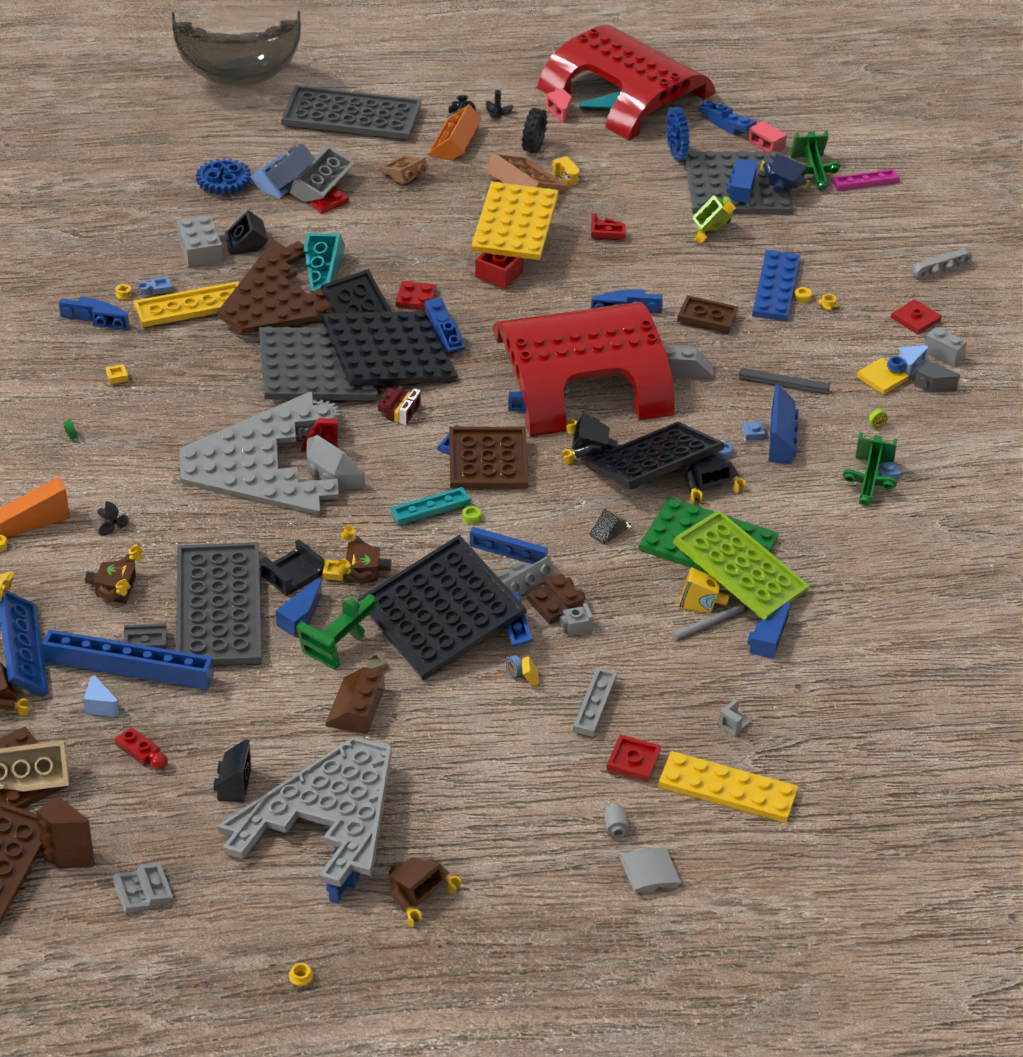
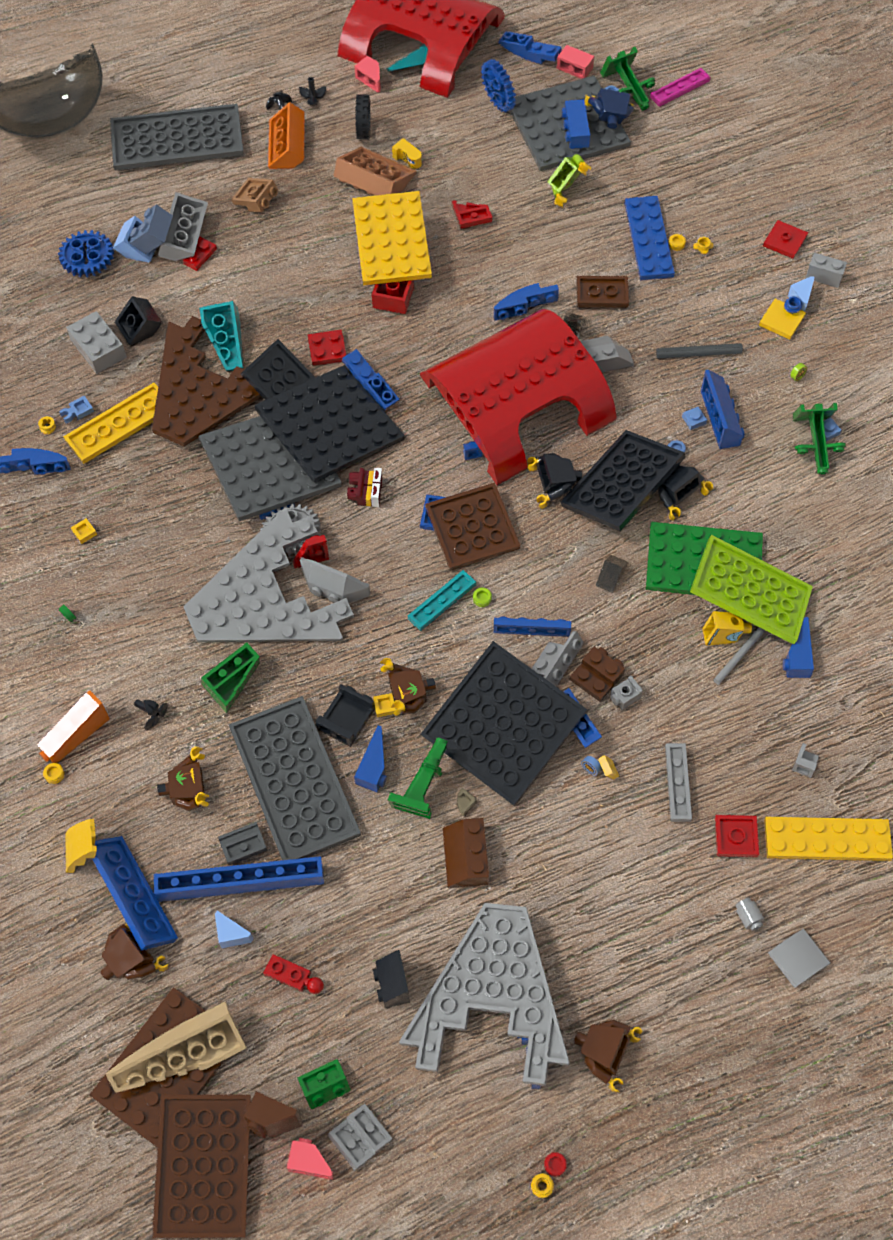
camera: 15 degrees left, 20 degrees up
(82, 889) = (307, 1160): none -> coral slope
(128, 838) = (324, 1084): none -> green bracket
(198, 509) = (231, 676): none -> green wedge
(322, 963) = (555, 1164): none -> red tile
(667, 330) = (575, 322): none -> clear smoke slope
(925, 268) = (786, 171): light grey beam -> none
(936, 378) = (831, 309): dark grey slope -> none

